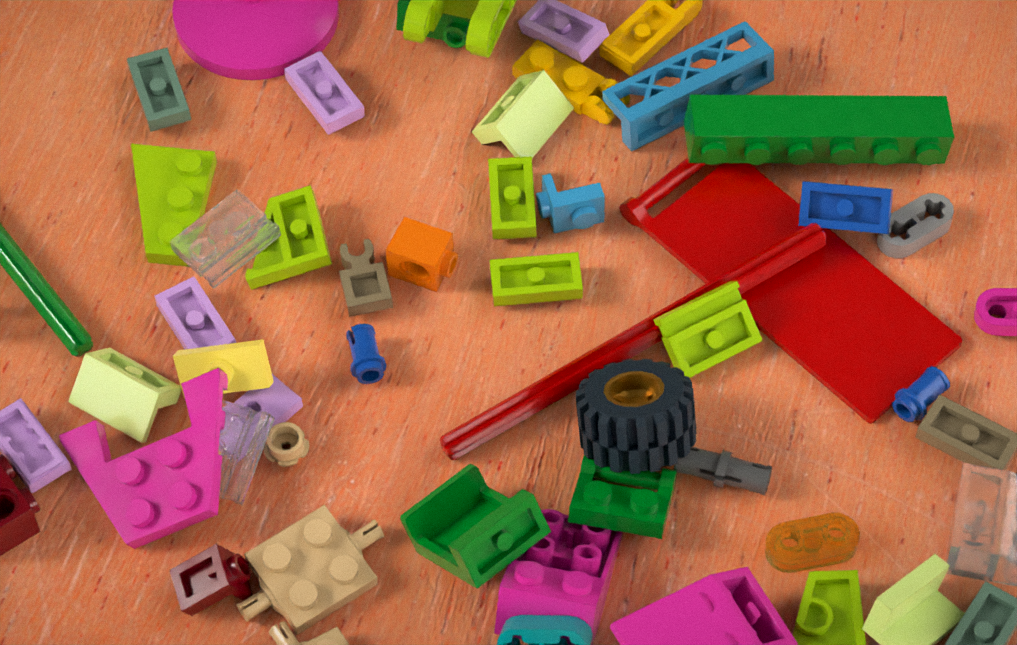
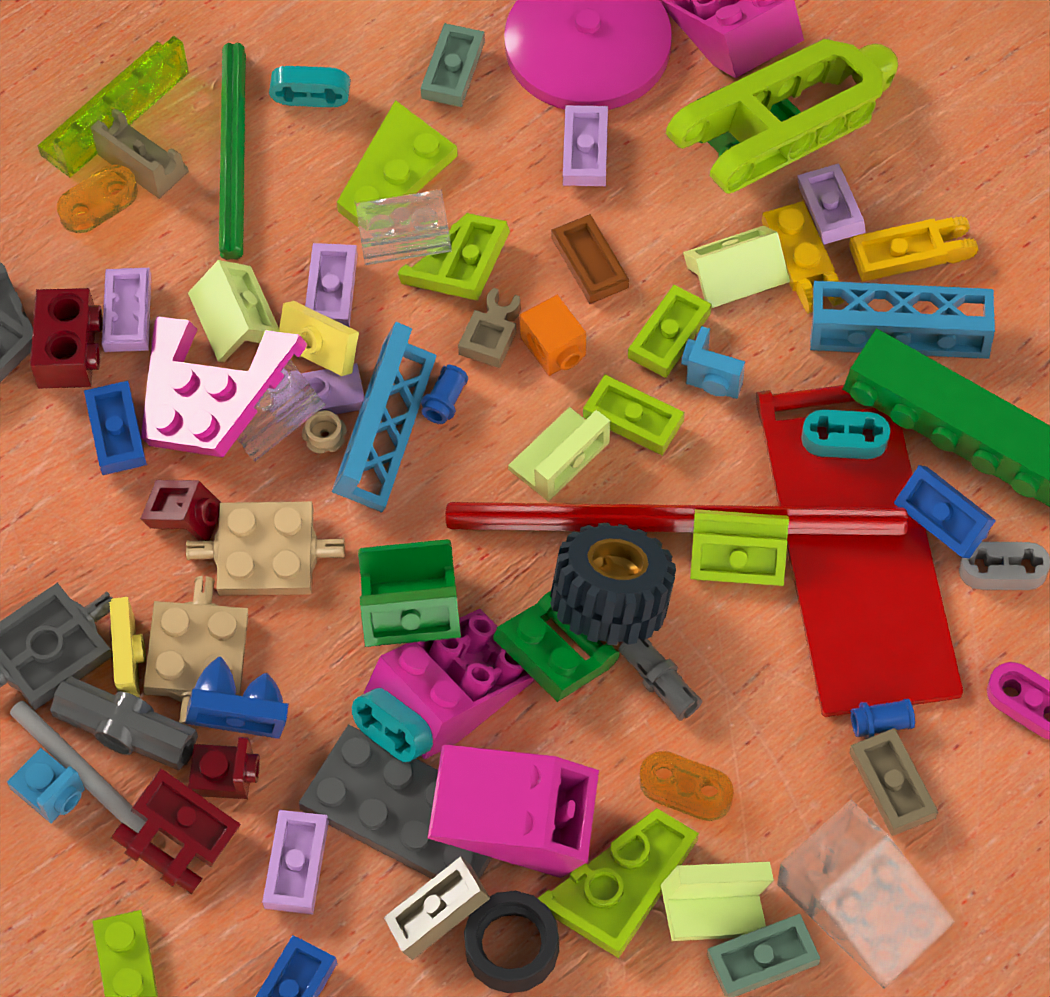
camera: 35 degrees right, 5 degrees up
(45, 172) = (309, 86): none -> teal beam
(96, 549) = (115, 428): none -> blue plate
(323, 407) = (374, 411): none -> dark azure fence
(397, 179) = (590, 258): none -> dark orange tile
(498, 343) = (561, 452): none -> yellowish green panel
(715, 191) = (845, 434): none -> teal beam

